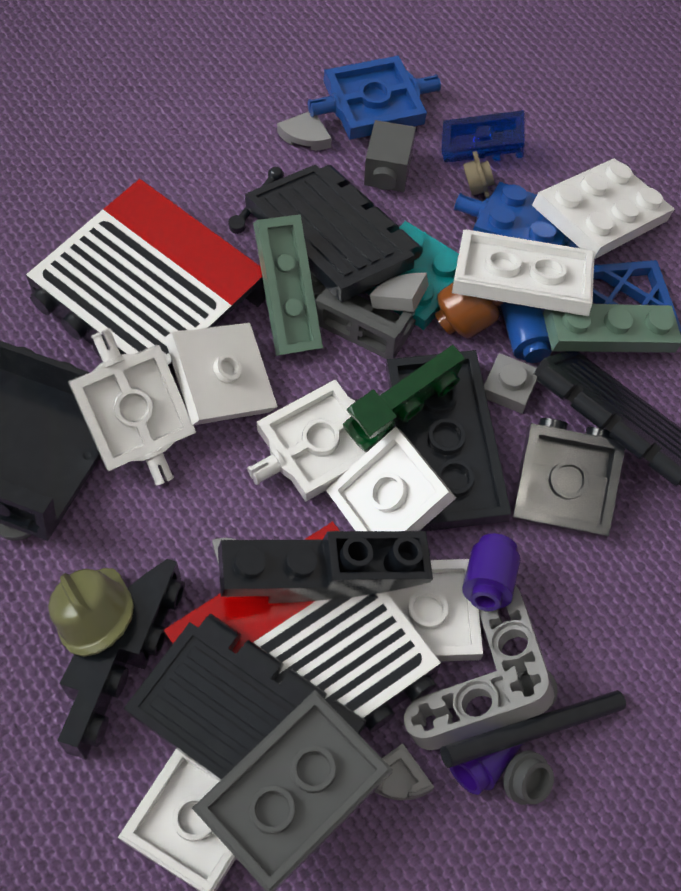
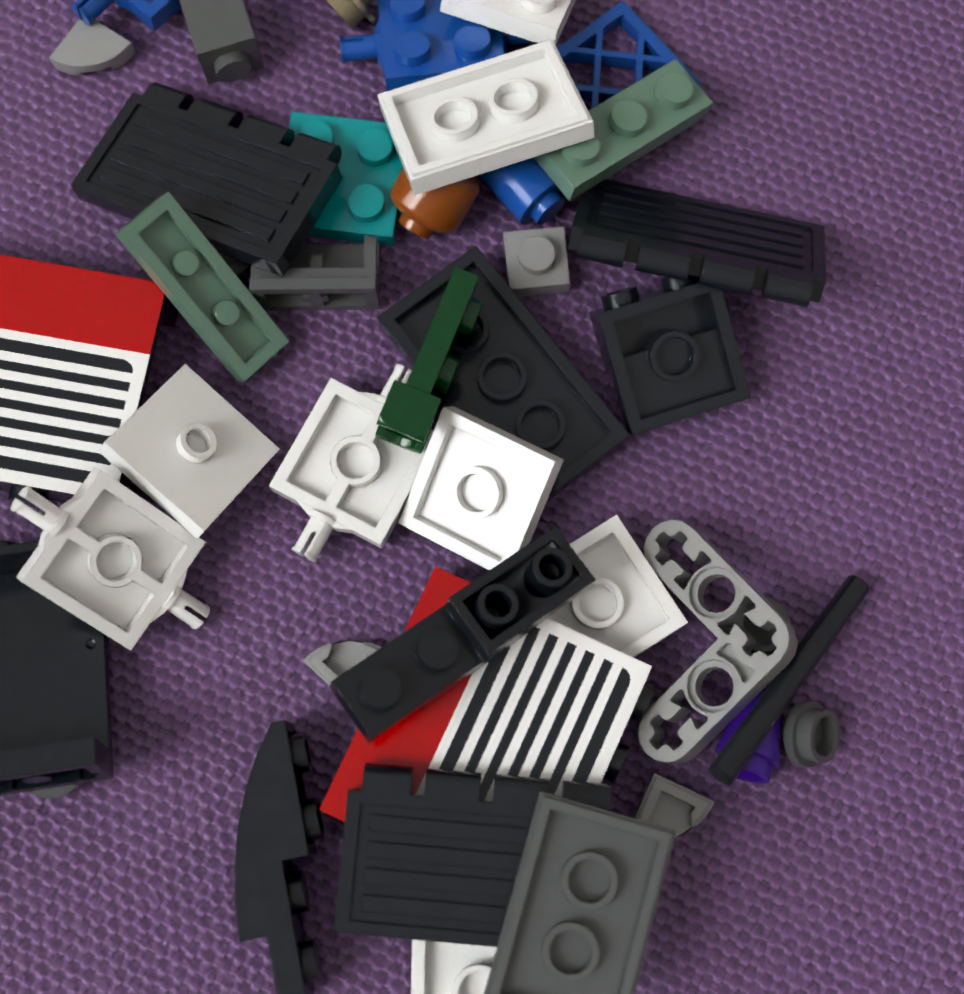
camera: 25 degrees left, 15 degrees up
(90, 610) = (221, 833): olive piece -> none
(237, 222) = (80, 225): black hinge -> none
(400, 292) = (346, 221): light grey tile -> none
(492, 572) = (650, 525): dark purple brick -> none

